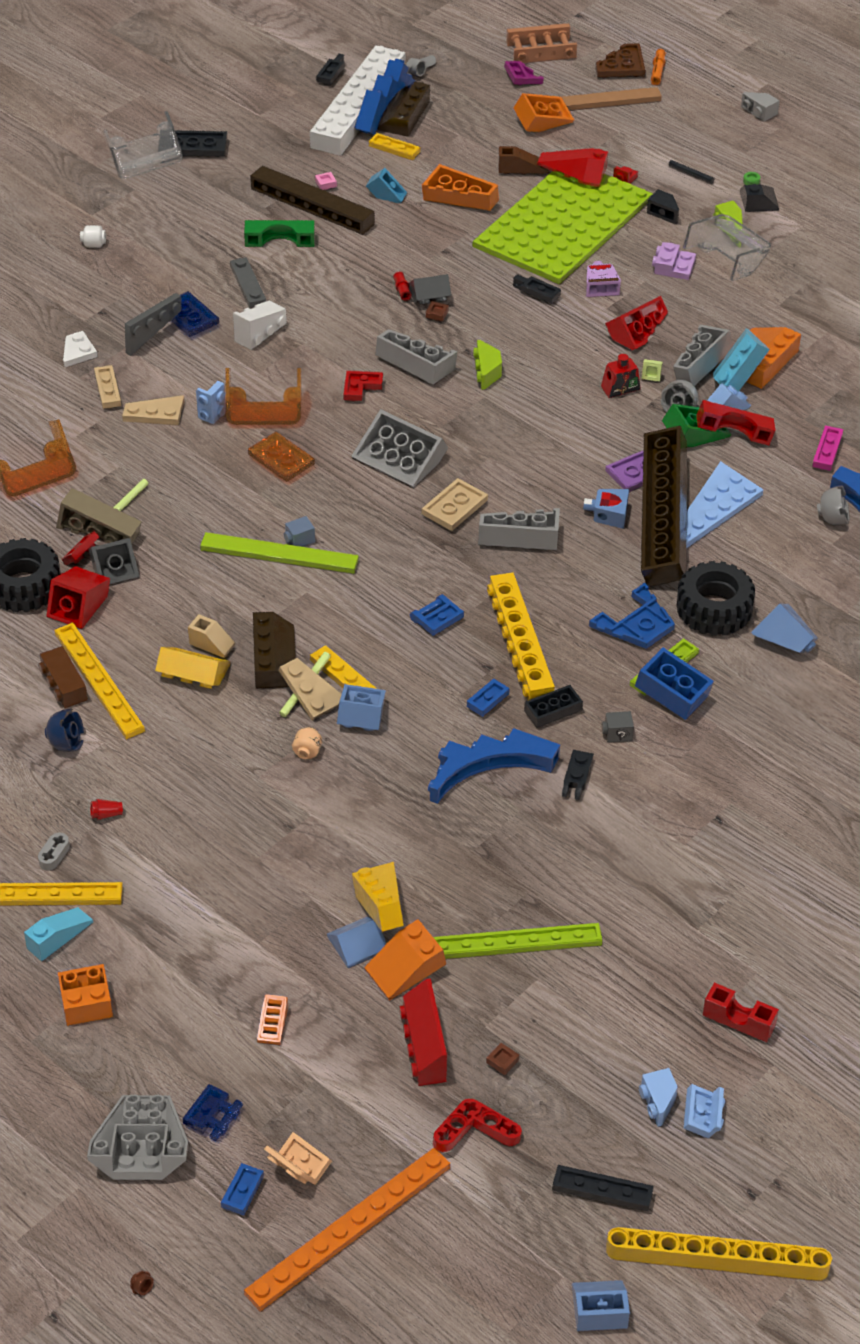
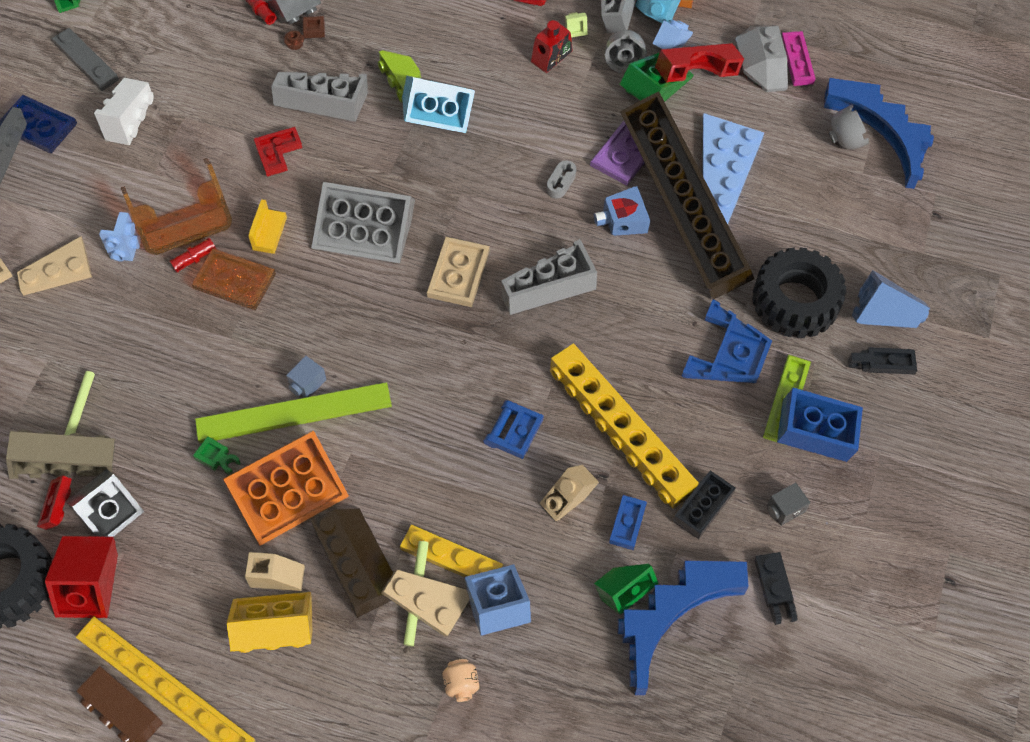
camera: 25 degrees left, 15 degrees up
(208, 558) = (215, 454): none -> green plate
(246, 588) = (285, 487): none -> orange slope
(258, 432) = (192, 255): none -> red pin
(323, 431) = (266, 228): none -> yellow panel
(416, 316) = (294, 40): none -> copper plate
(454, 663) = (569, 491): none -> tan slope
(461, 728) = (625, 585): none -> green slope
(501, 388) = (437, 104): none -> medium azure slope
(574, 471) = (557, 177): none -> light grey beam
(759, 666) = (884, 361): none -> black hinge
(796, 438) = (764, 57): none -> light grey wedge

